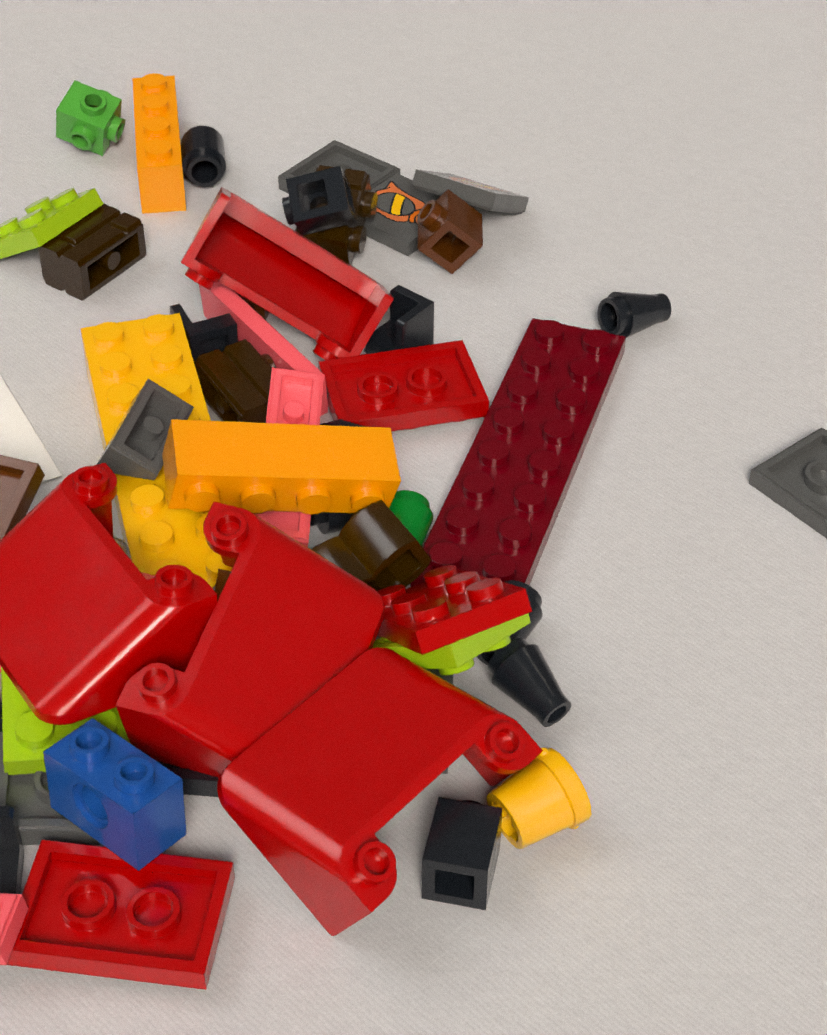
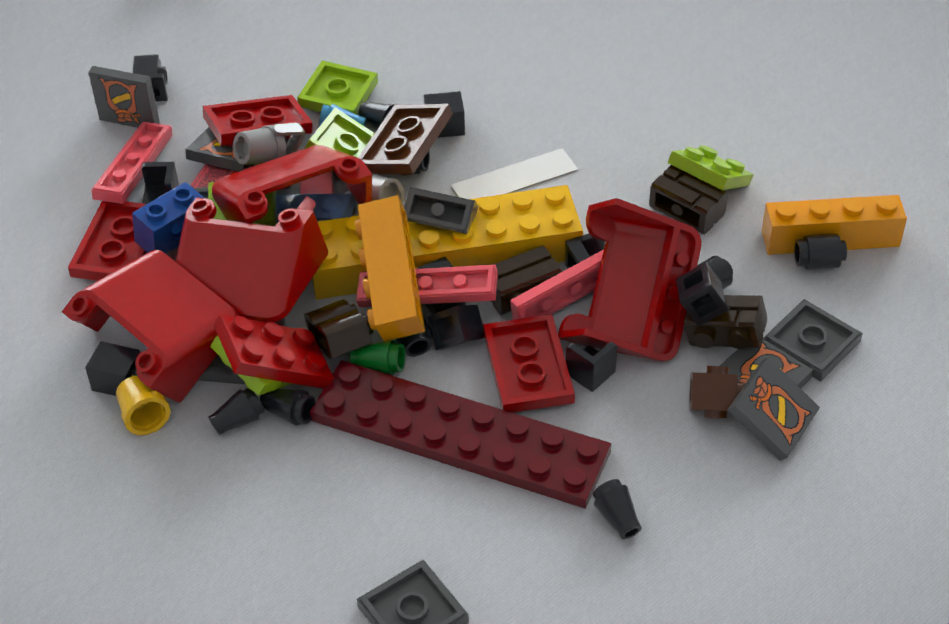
camera: 95 degrees right, 5 degrees up
(89, 118) = (856, 178): bright green brick -> none

